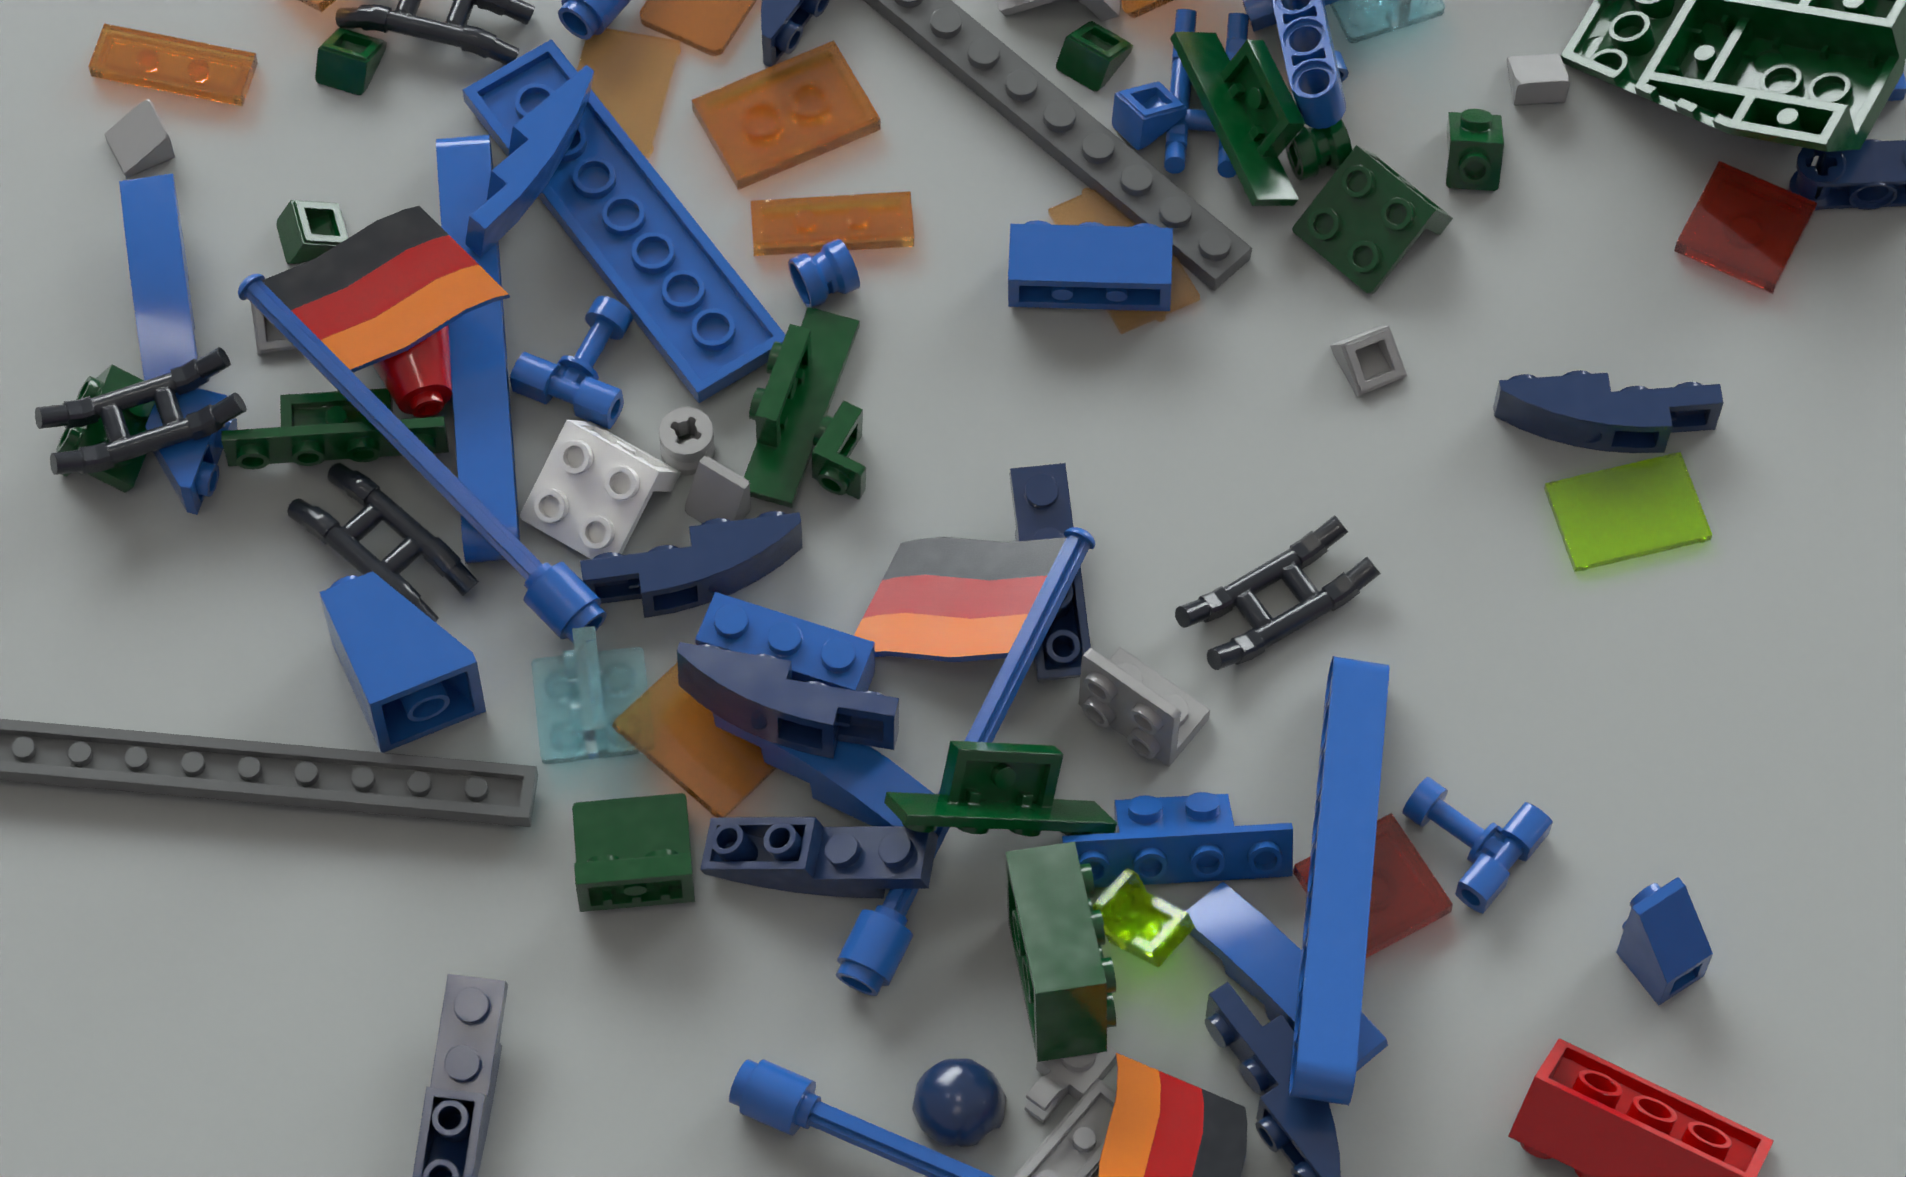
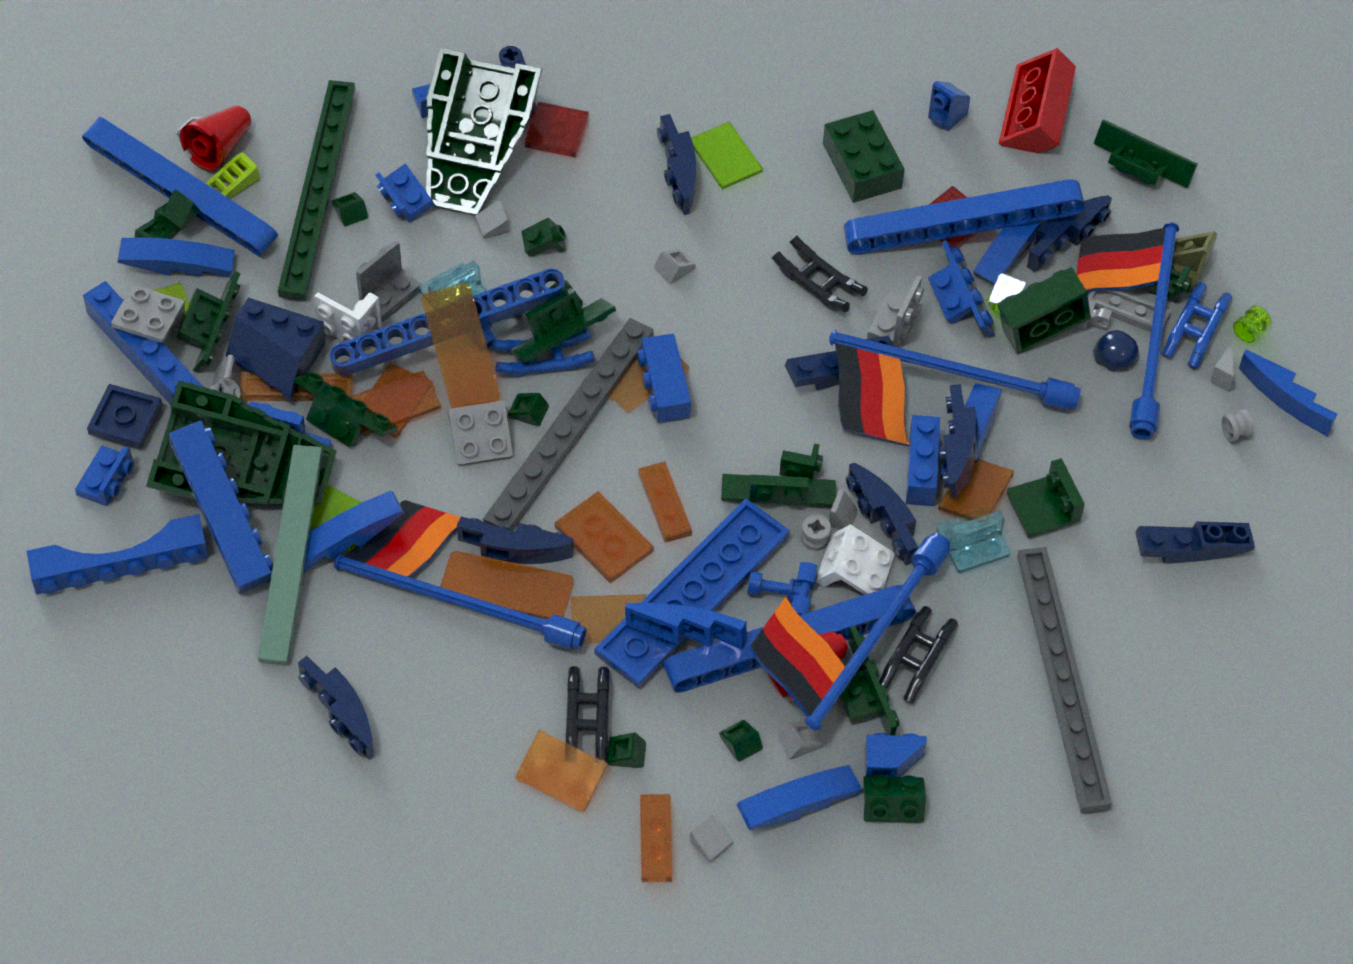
camera: 105 degrees left, 5 degrees down
(157, 389) = (897, 747): black piece -> none
(399, 662) = (993, 617): blue slope -> none
(817, 859) = (1020, 422): dark blue slope -> none
(824, 273) = (701, 492): blue wheel -> none
(1000, 789) = (978, 348): dark green bracket -> none
(1145, 113) = (563, 374): blue slope -> none
(1367, 219) = (600, 270): dark green bracket -> none
(1491, 850) = (919, 177): blue bar -> none
(1558, 744) = (863, 156): none -> dark green brick

